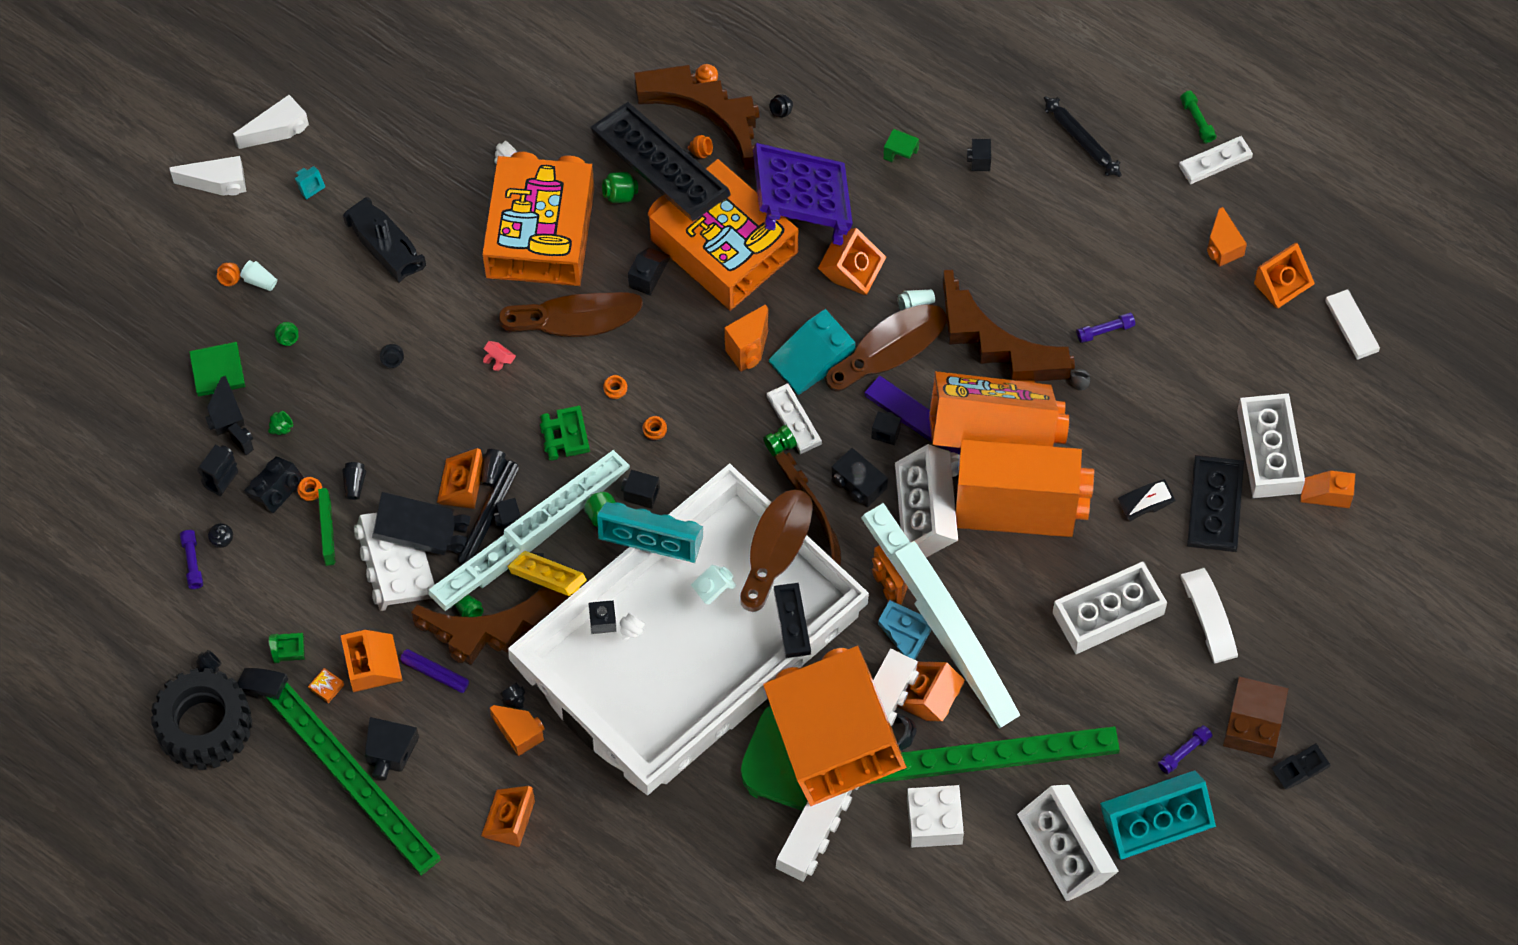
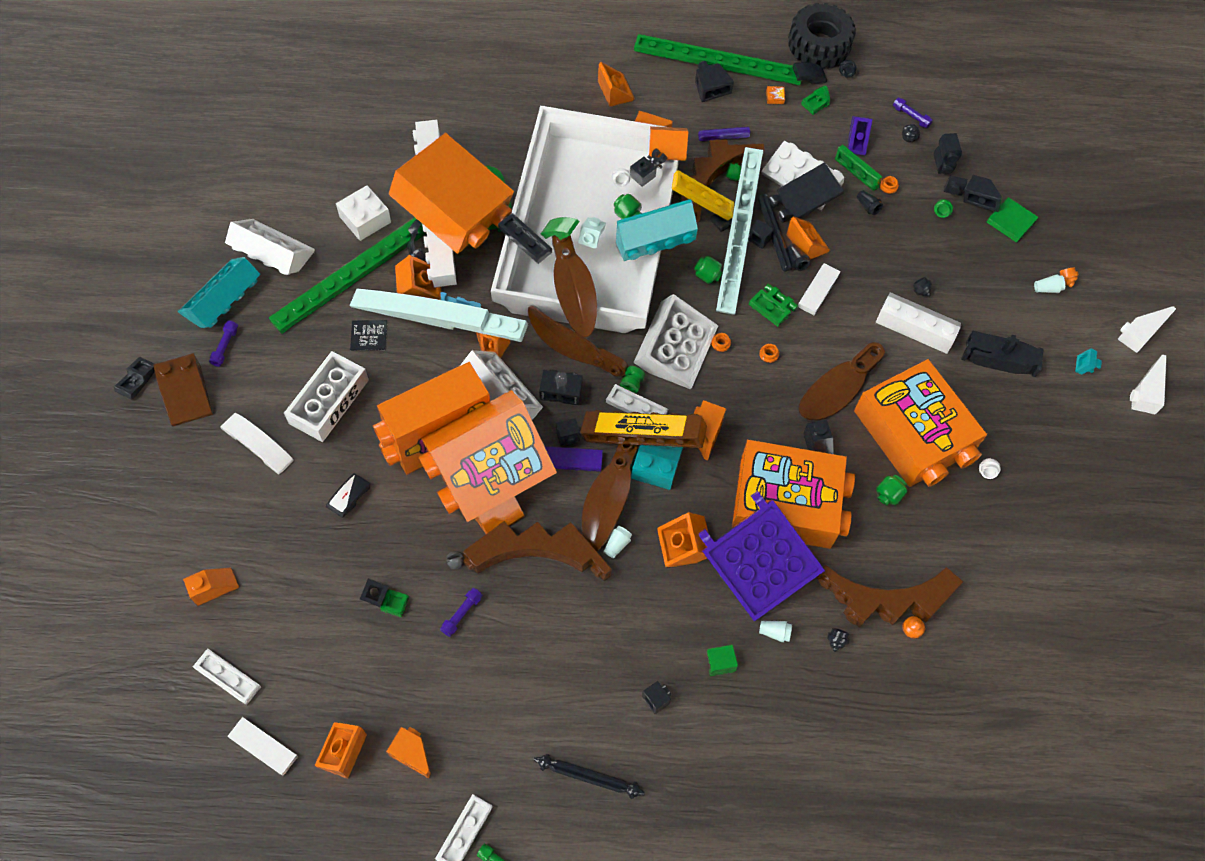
camera: 140 degrees right, 0 degrees up
(274, 483) = (911, 174): black bracket -> none
(282, 566) = (859, 134): none -> dark purple slope
(286, 333) = (997, 261): green plate -> none
(371, 659) = (763, 112): orange slope -> none
(430, 323) = (918, 323): none -> white slope
(499, 353) = (860, 326): coral tile -> none
(500, 422) = (819, 289): none -> white tile
(540, 639) = (669, 141): none -> orange slope
(580, 620) = (655, 160): none -> black plate
(640, 489) = (696, 295): black brick -> none
(656, 580) = (627, 206): none -> green head
(660, 161) = (877, 508): black plate -> none
(701, 146) = (865, 562): orange plate -> none
(702, 449) = (676, 342): none -> white slope
(750, 598) = (561, 227): none -> green slope
(817, 366) = (644, 429): none -> brick
(830, 143) = (777, 630): none -> light aqua cone
(1021, 669) = (368, 335): none -> black sticker
(1162, 375) = (394, 603): none -> green tile
(1177, 387) = (375, 600): none -> black plate
(1215, 503) = (296, 527): black tile -> none
(1270, 445) = (273, 586): white brick -> none
(1355, 402) = (227, 676): none -> white tile

